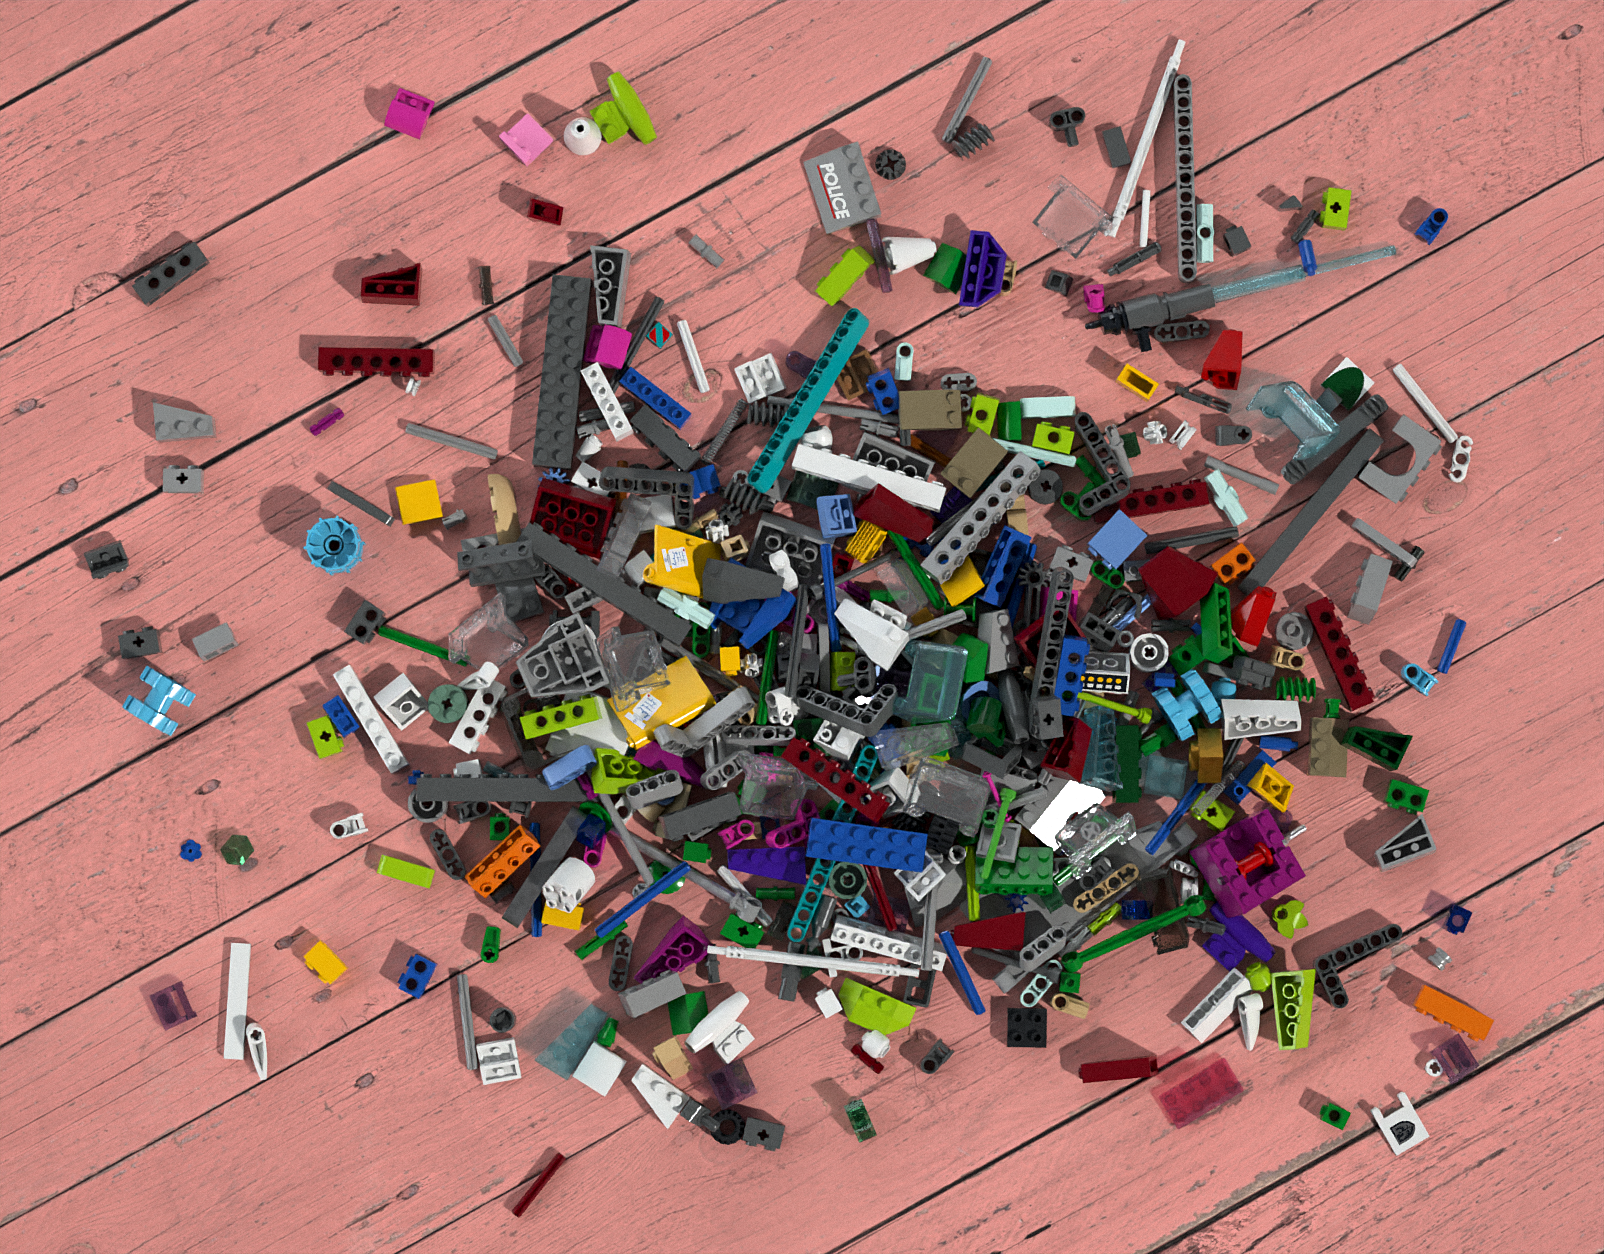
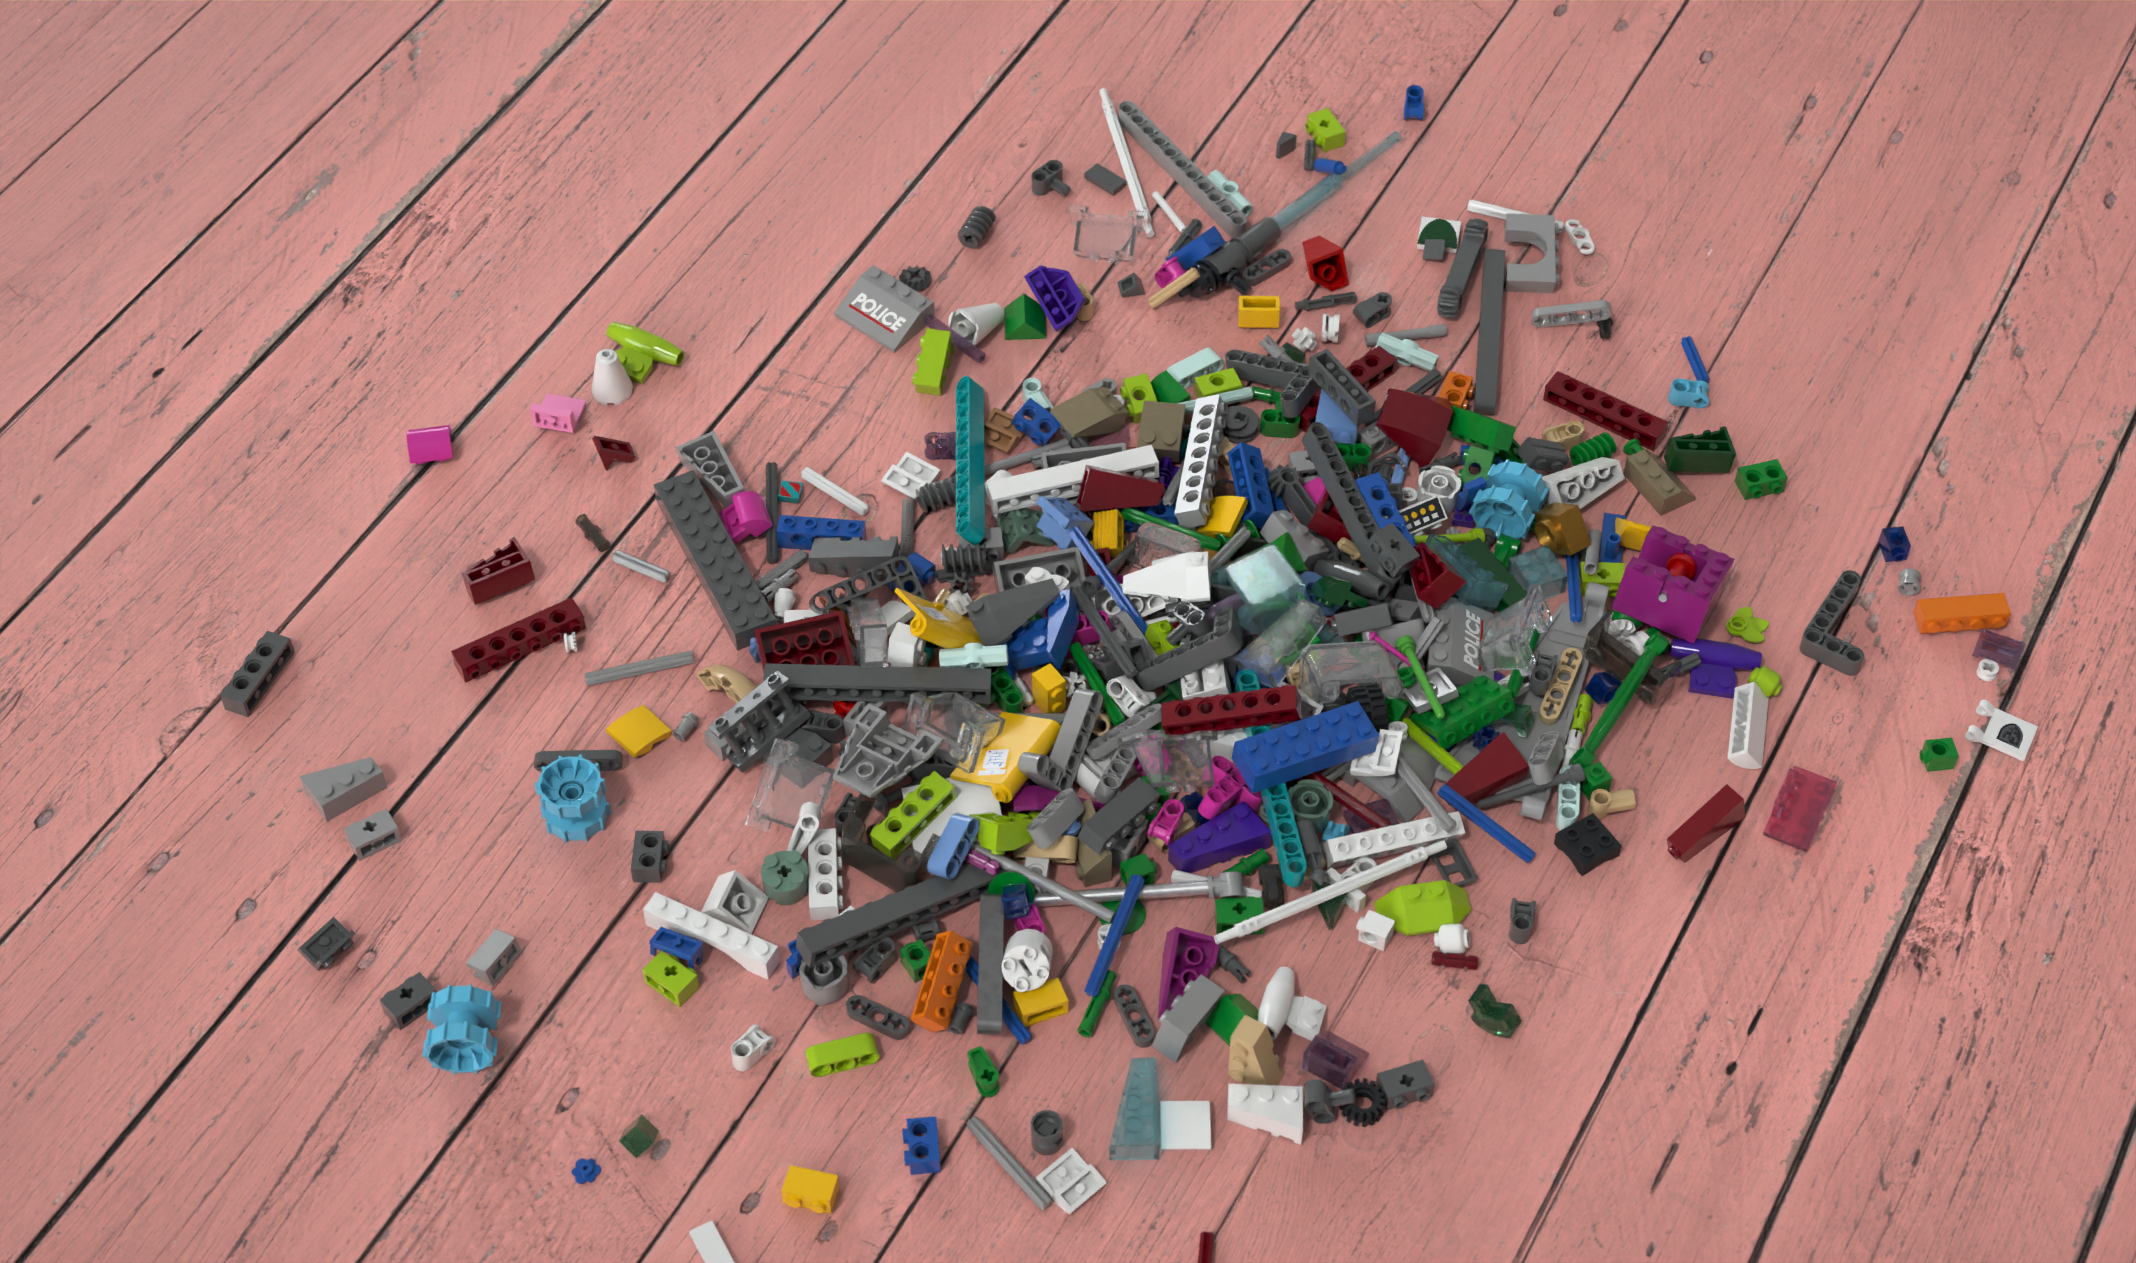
camera: 35 degrees left, 35 degrees down
(327, 421) = (498, 715): magenta axle -> none
(417, 644) = (724, 848): green axle -> none
(607, 401) = (776, 551): white brick -> none
(608, 1033) = (1169, 1086): green cone -> none
(706, 251) = (790, 410): light grey pin -> none
(791, 974) = (1318, 927): dark grey piece -> none
(967, 100) = (949, 207): light grey axle -> none
(1084, 318) = (1173, 288): none -> tan axle
(1127, 528) = (1342, 387): none -> dark grey brick
(1128, 287) = (1198, 248): none -> blue slope
(1236, 240) = (1261, 186): dark grey brick -> none
(1249, 1013) = (1779, 713): white piece -> none
(1252, 614) = (1509, 407): red slope -> none
(1277, 743) = (1612, 502): blue cylinder -> none
(1293, 631) = (1549, 414): light grey tile -> none
(1293, 1006) = (1814, 678): lime wedge -> none
(1299, 413) = (1415, 265): clear light blue windscreen -> none
(1369, 588) = (1590, 353): light grey wedge -> none
(1407, 846) = (1799, 511): light grey wedge -> none

